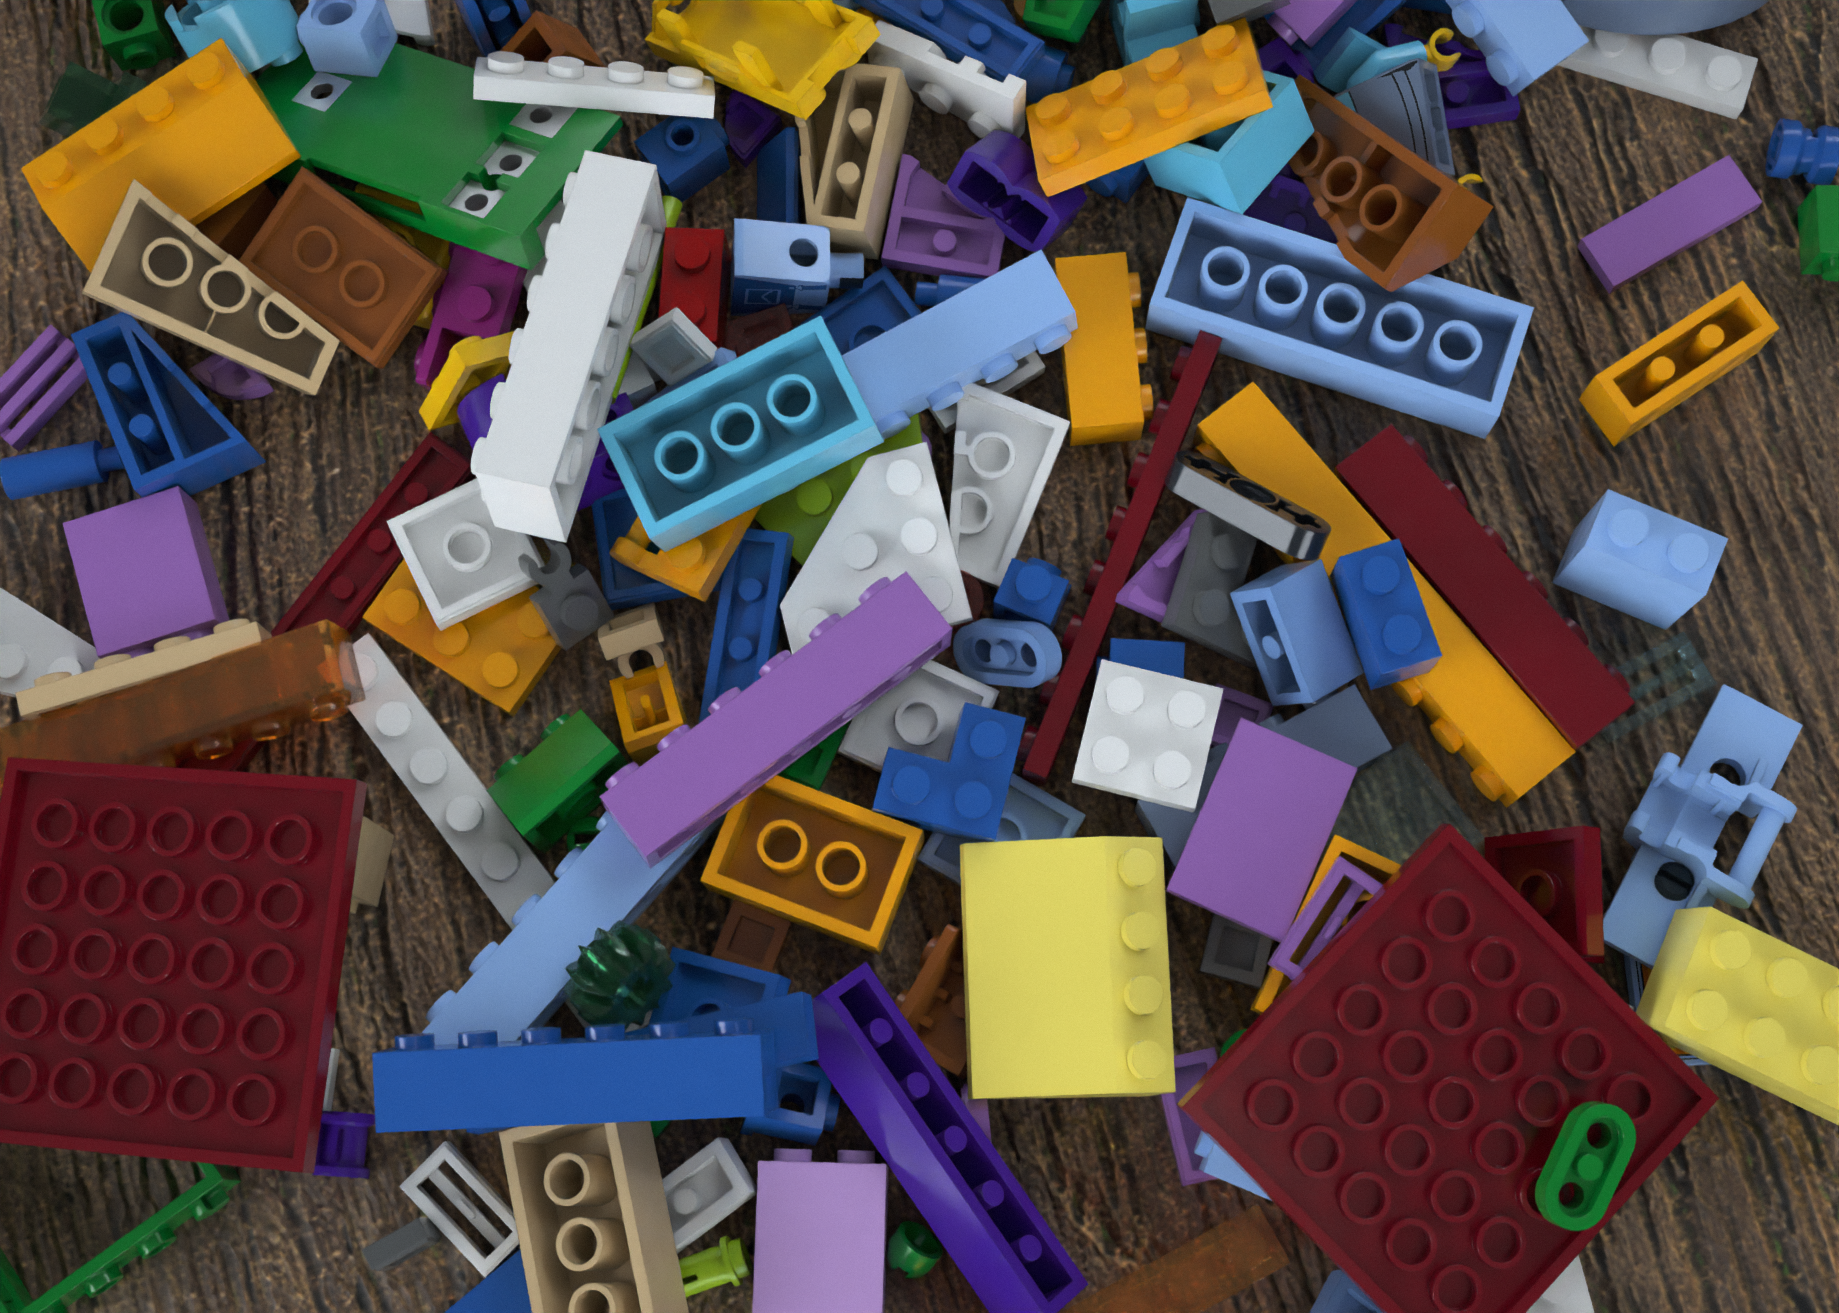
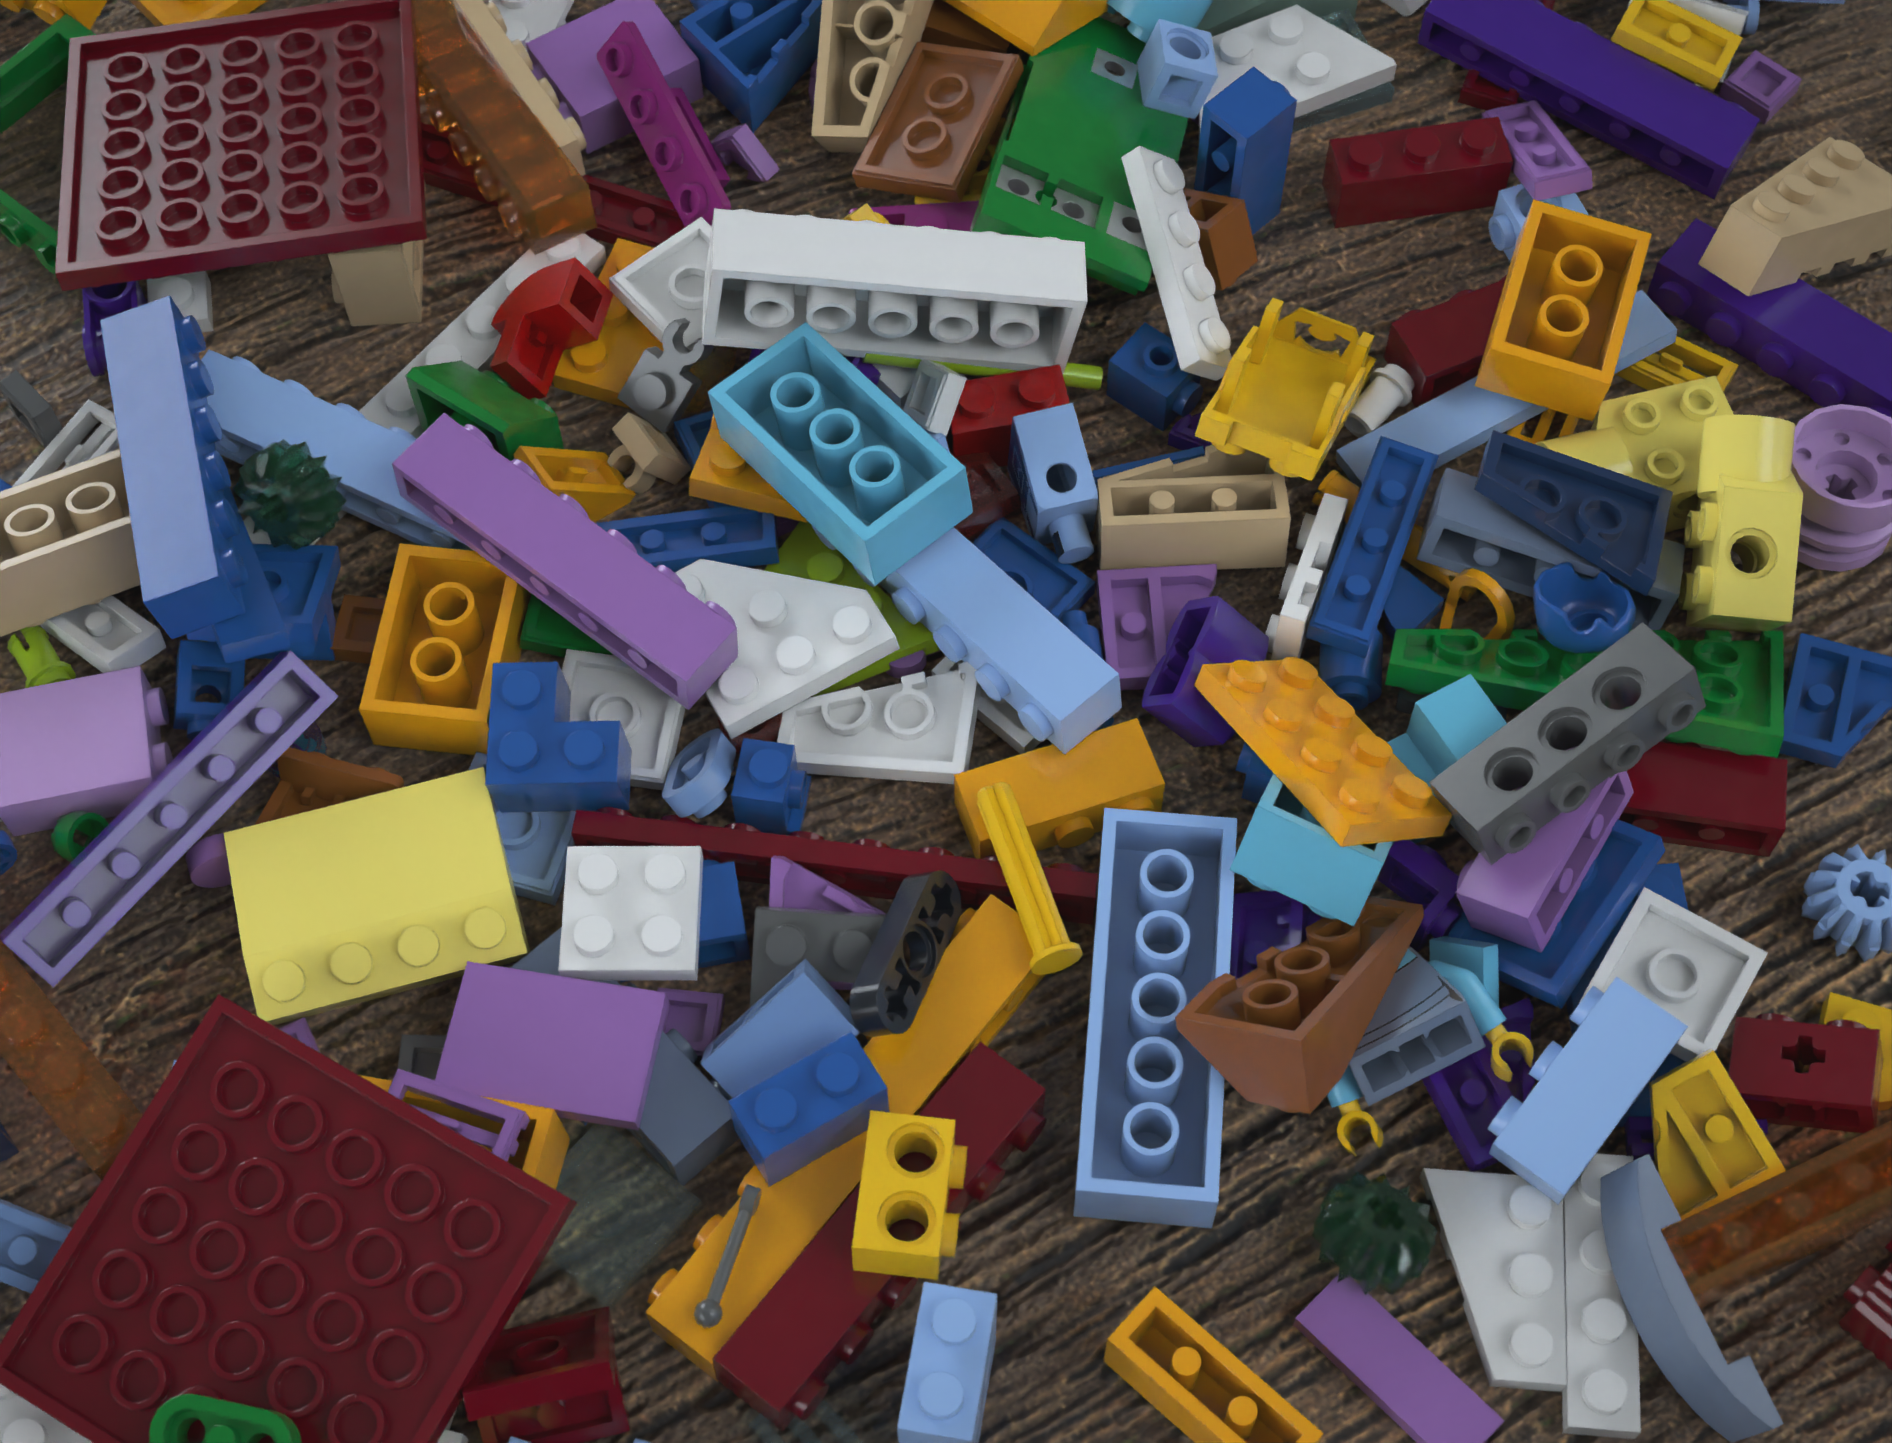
camera: 70 degrees right, 15 degrees down
(264, 535) = (665, 126): none -> magenta bracket
(290, 470) = (745, 149): none -> medium lavender tile
(450, 700) = (542, 318): none -> red brick
(1197, 388) = (1026, 881): none -> yellow axle
(1476, 569) = (896, 1194): none -> yellow brick
(1535, 742) = (709, 1312): none -> dark grey hinge
(1564, 202) = (1374, 1233): none -> clear green gear
(1603, 113) = (1510, 1270): none -> white wing

